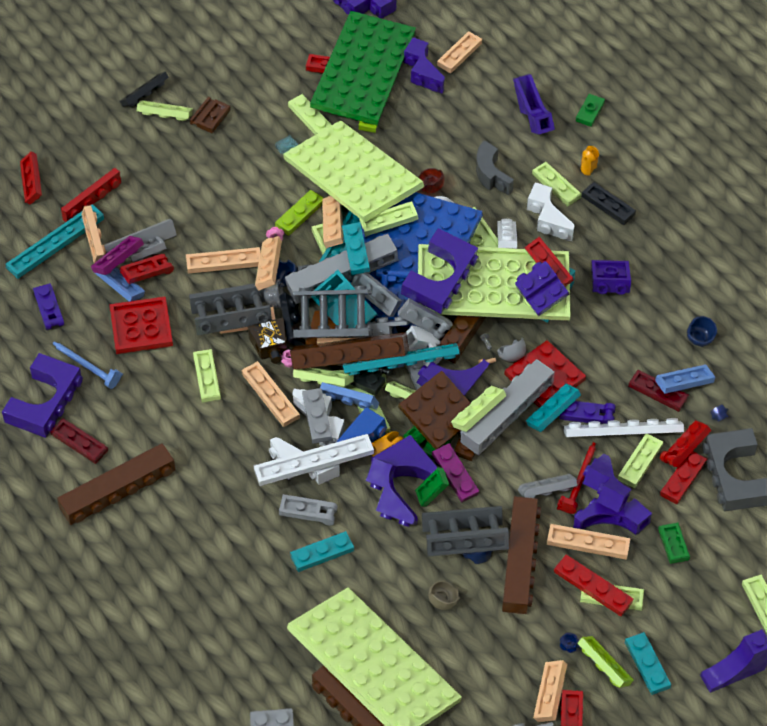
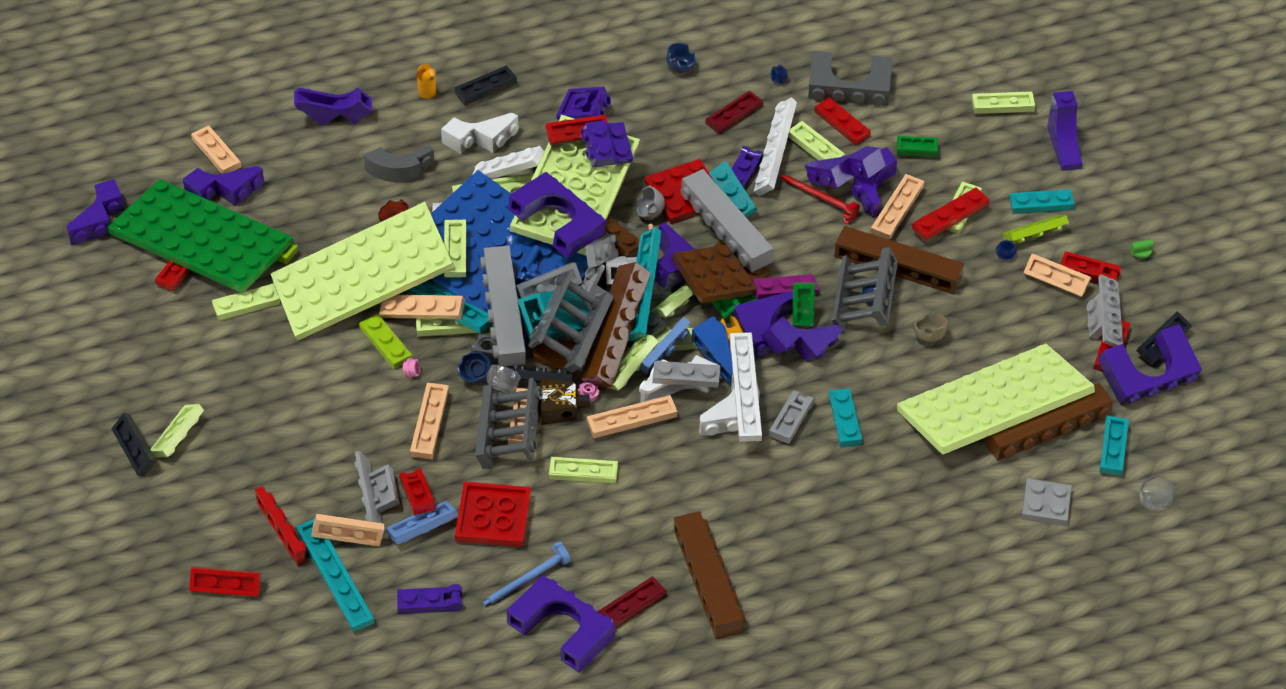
camera: 75 degrees left, 5 degrees down
(117, 255) = (395, 508): magenta plate -> none
(210, 114) = (204, 390): reddish brown plate -> none
(268, 263) = (459, 374): light nougat plate -> none
(285, 144) = (282, 332): clear light blue plate -> none
(355, 248) = (493, 279): teal plate -> none
(478, 408) = (730, 236): yellowish green plate -> none
(546, 486) = (825, 219): light grey plate -> none
(560, 186) = (437, 120): yellowish green tile -> none
(590, 110) = (349, 68): green plate -> none
(685, 379) = (733, 85): medium blue plate -> none
(685, 444) = (811, 104): red plate -> none

